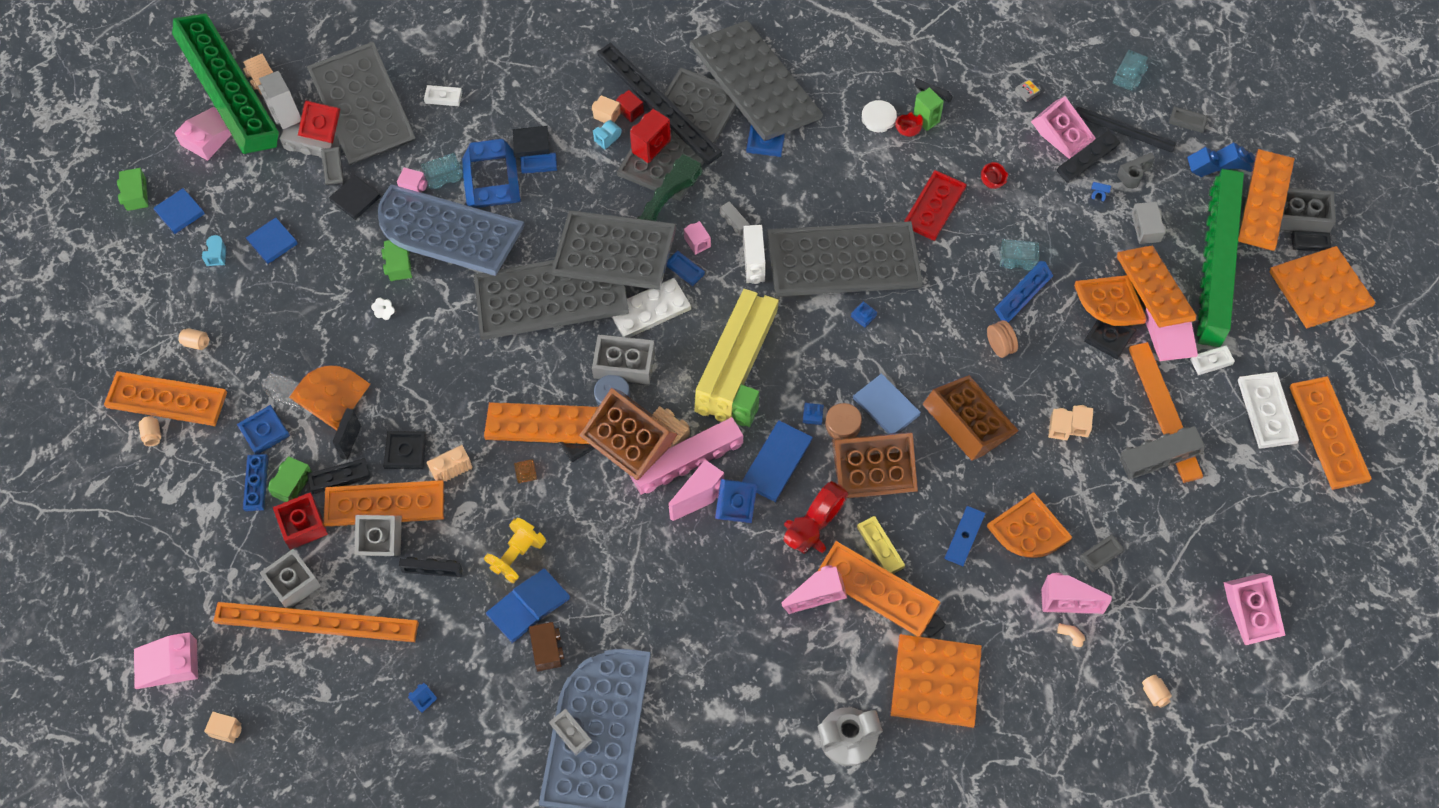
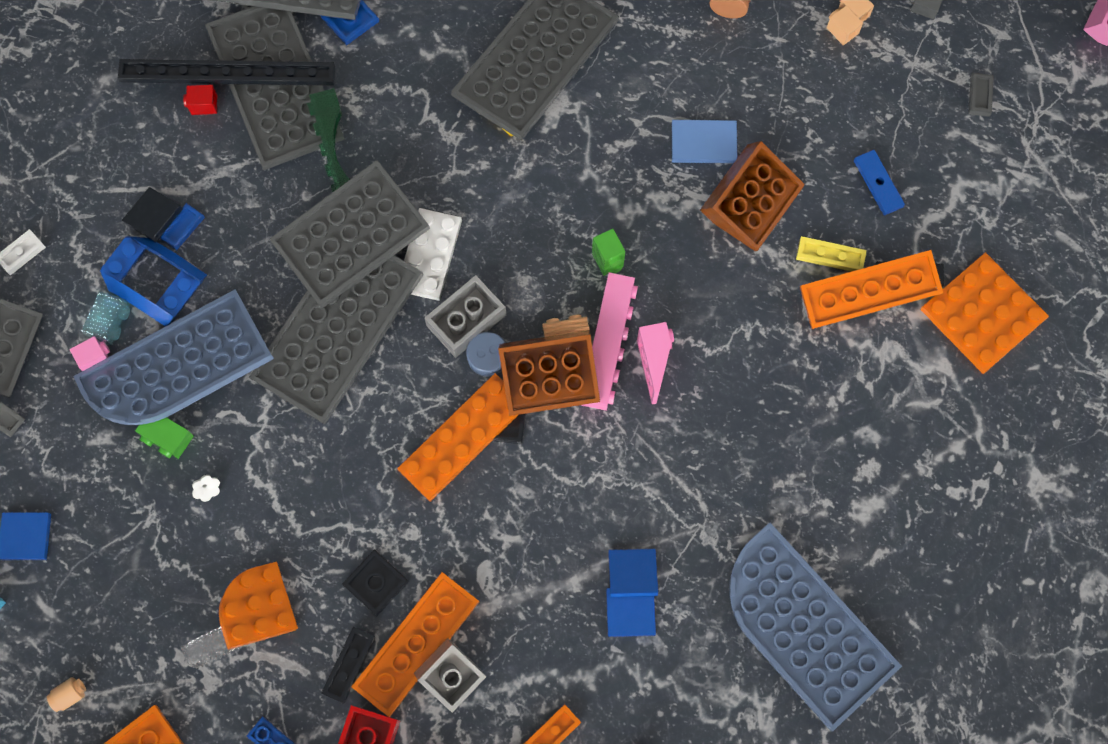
camera: 50 degrees left, 10 degrees up
(263, 430) = (231, 700): blue tile -> none
(289, 479) = (312, 715): bright green brick -> none
(346, 433) = (315, 623): black tile -> none
(354, 197) = (52, 420): black tile -> none
(430, 567) = (519, 650): black plate -> none
(449, 464) = (430, 553): light nougat brick -> none
(519, 544) = (571, 552): yellow piece -> none
(525, 471) = (495, 491): clear orange plate -> none
(545, 646) = (688, 608): reddish brown brick -> none
(570, 732) = (792, 650): light grey plate -> none
(605, 109) = (185, 123): light nougat brick -> none
(607, 133) = (211, 142): medium azure leg -> none
(650, 135) = (259, 106): red brick -> none
(685, 268) = (420, 190): blue tile -> none
(697, 237) = (397, 155): bright pink brick -> none
(733, 217) = (406, 109): light grey piece -> none
(734, 354) = (550, 220): light yellow brick -> none
(736, 501) = (693, 335): blue tile -> none
(754, 254) = (464, 122): white window -> none
(777, 460) = (679, 271): blue tile -> none
(805, 531) = (772, 302): red animal -> none
(813, 413) = (658, 205): blue tile -> none
(819, 589) = (838, 335): bright pink slope -> none
(843, 421) = (690, 187): nougat head -> none
(849, 750) = (966, 430): light grey piece -> none
(863, 314) = (601, 86): blue tile -> none
(969, 417) = (776, 87): dark orange slope -> none
(1029, 529) = (915, 128): orange plate -> none
(1070, 595) = (997, 152): bright pink slope -> none
(1072, 631) = (1031, 173): light nougat arm -> none

